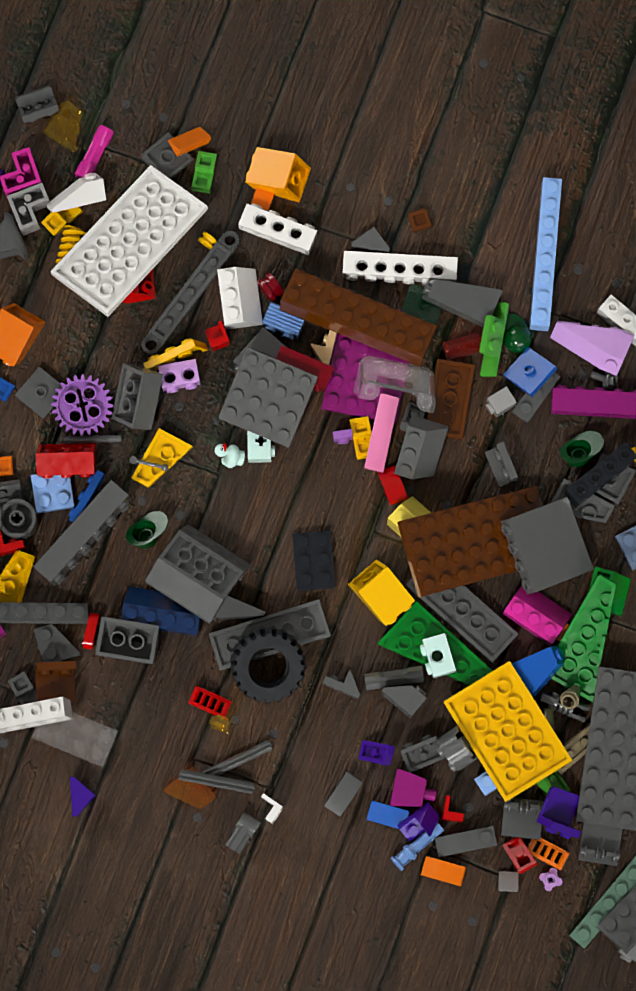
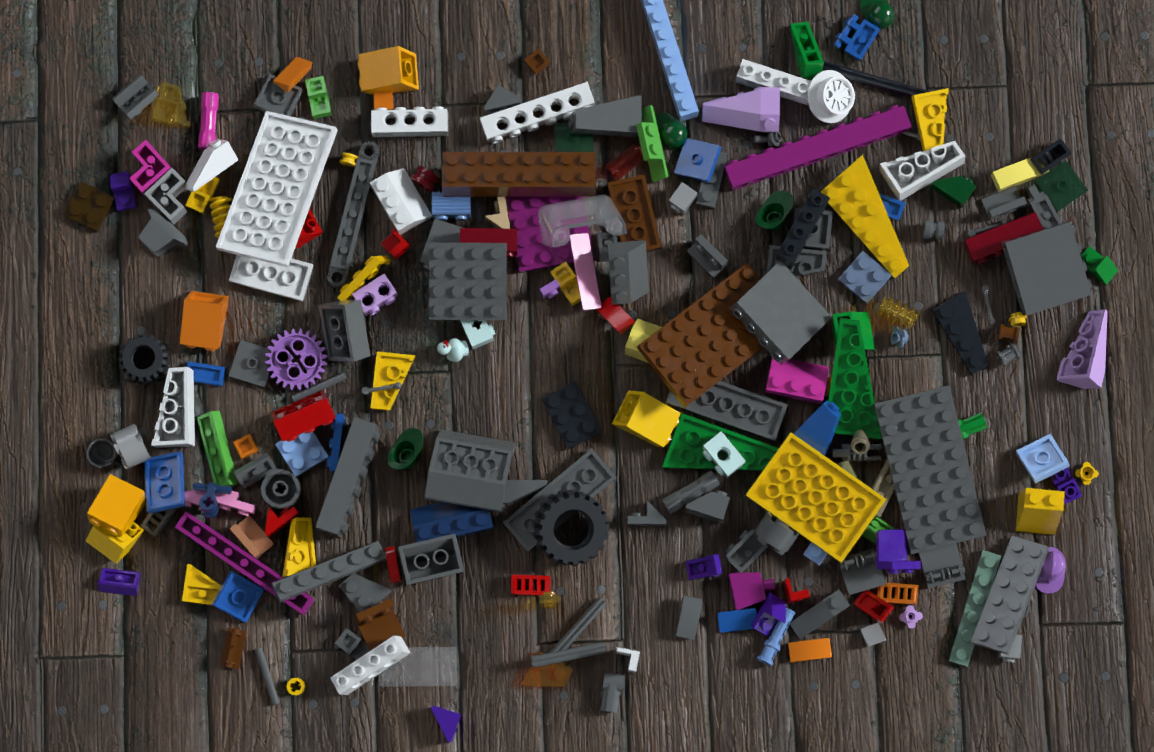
camera: 25 degrees left, 0 degrees up
(103, 330) = (272, 278): none -> white plate

